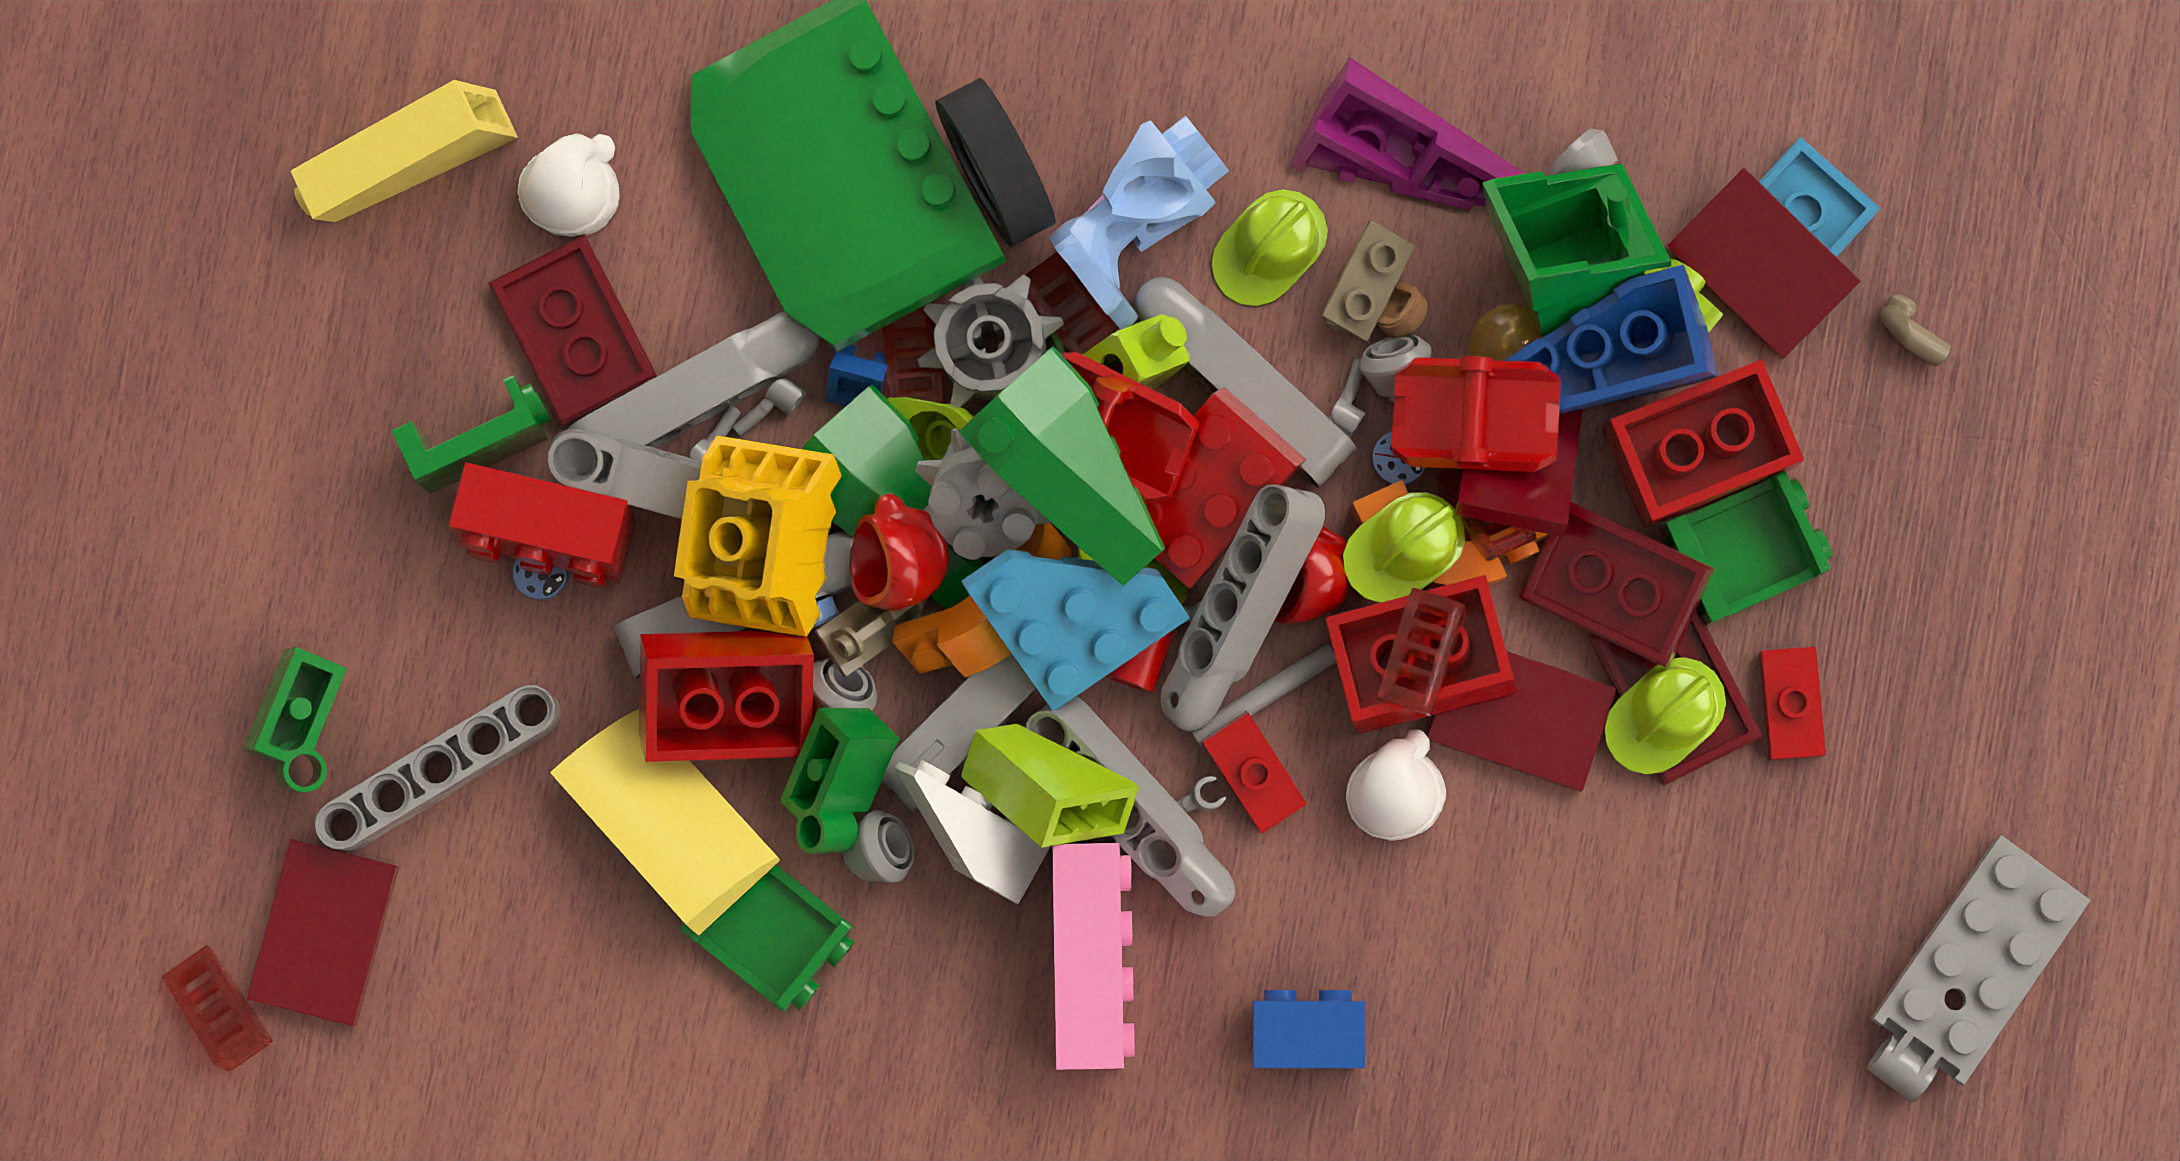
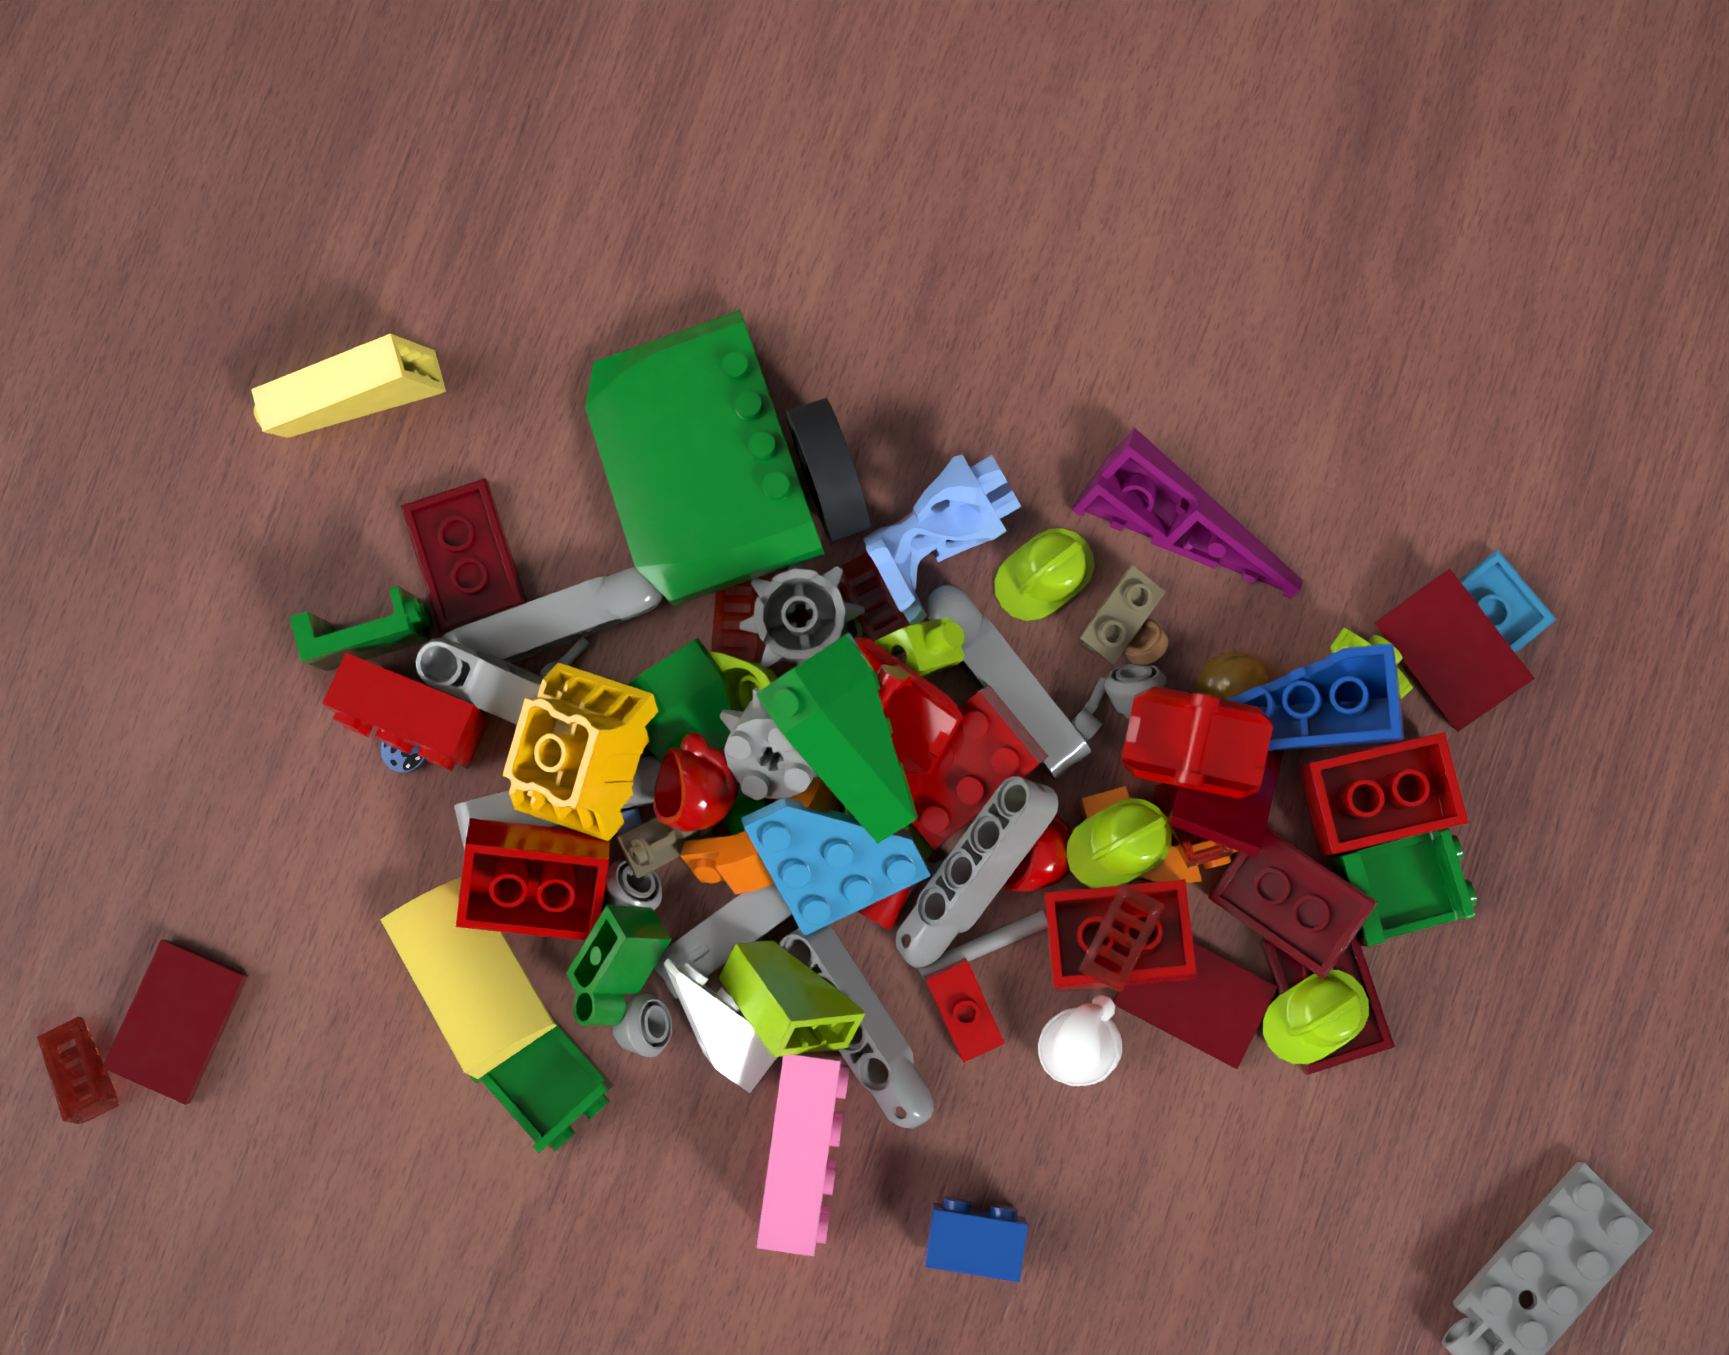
camera: 15 degrees right, 0 degrees up
(295, 715) = (178, 839): green hinge -> none
(411, 769) = (269, 904): light grey beam -> none
(571, 186) = (480, 436): white piece -> none
(782, 394) = (624, 633): light grey hand -> none
(852, 375) = (682, 627): blue tile -> none
(1194, 801) = (910, 1025): light grey hand -> none
(1391, 468) = (1115, 772): medium blue tile -> none
(1572, 237) = (1299, 606): green piece -> none
(1586, 152) = (1317, 546): light grey cone -> none
(1792, 703) = (1423, 1022): red plate -> none
(1911, 335) = (1569, 730): dark tan arm -> none

